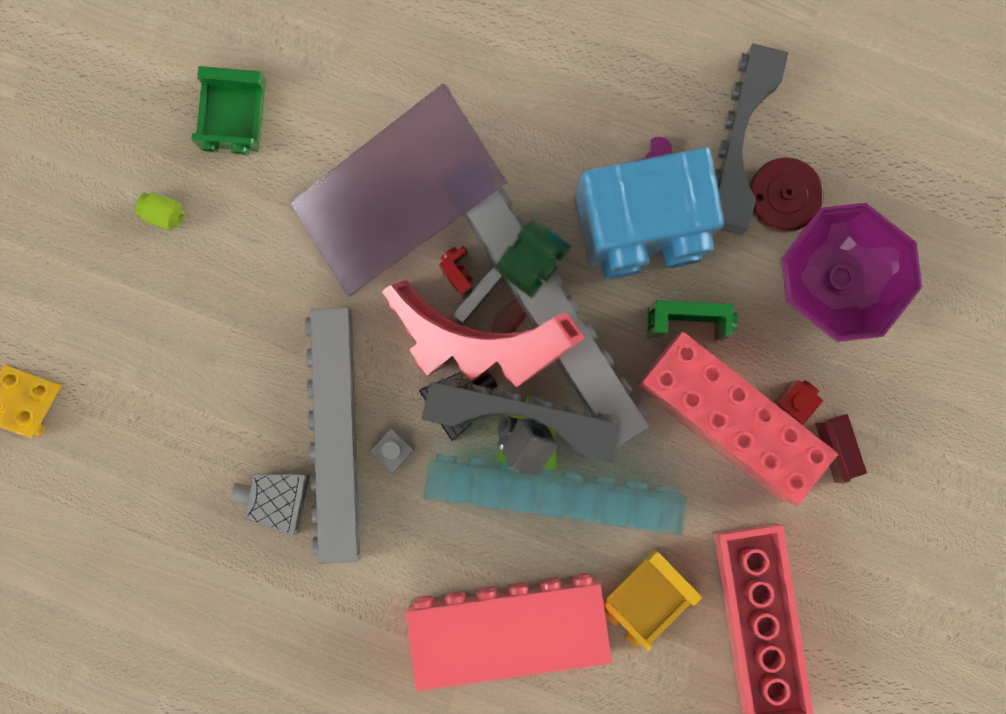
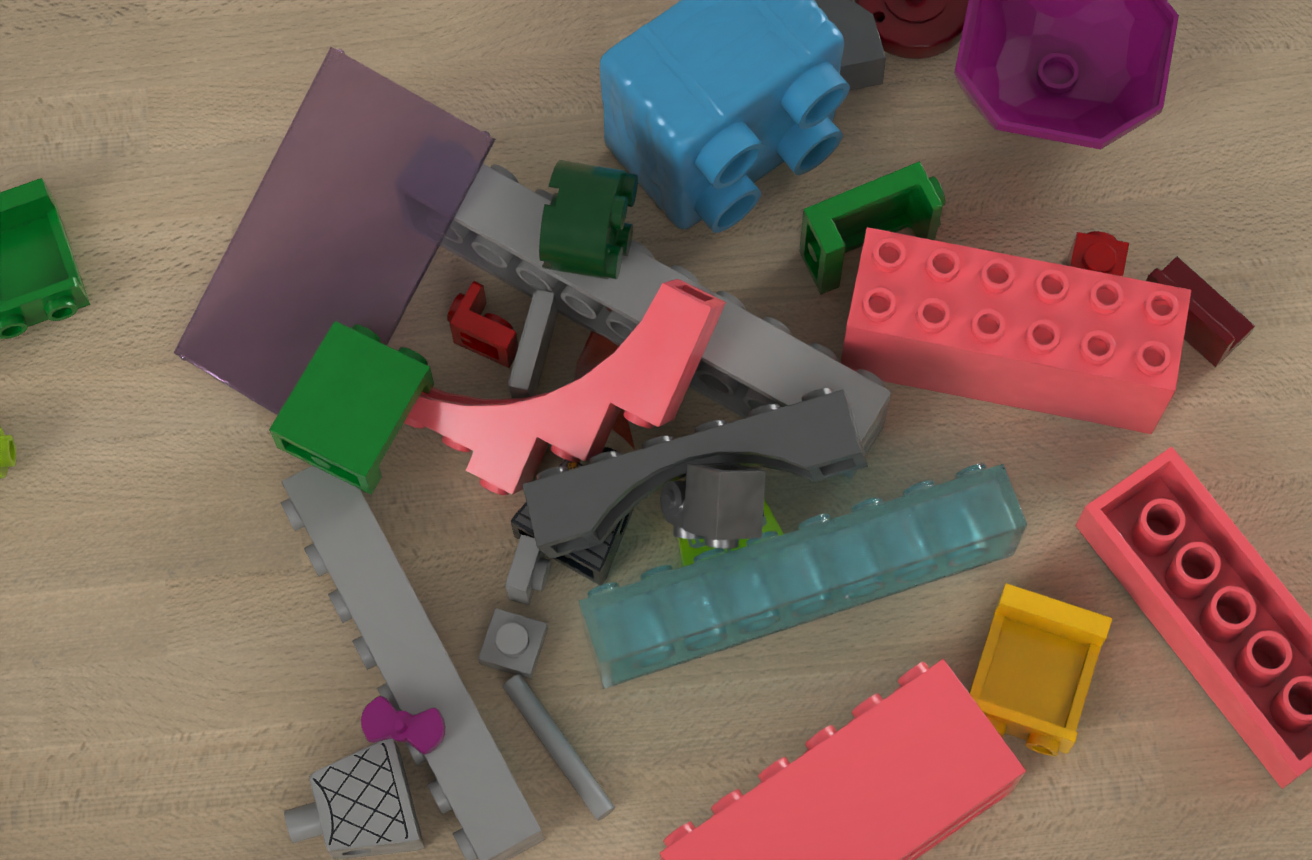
camera: 20 degrees left, 15 degrees down
(320, 481) = (384, 722): none -> magenta piece
(364, 288) = (351, 404): none -> green panel
(389, 516) = (558, 747): none -> light grey bar
(414, 419) = (527, 572): none -> light grey plate

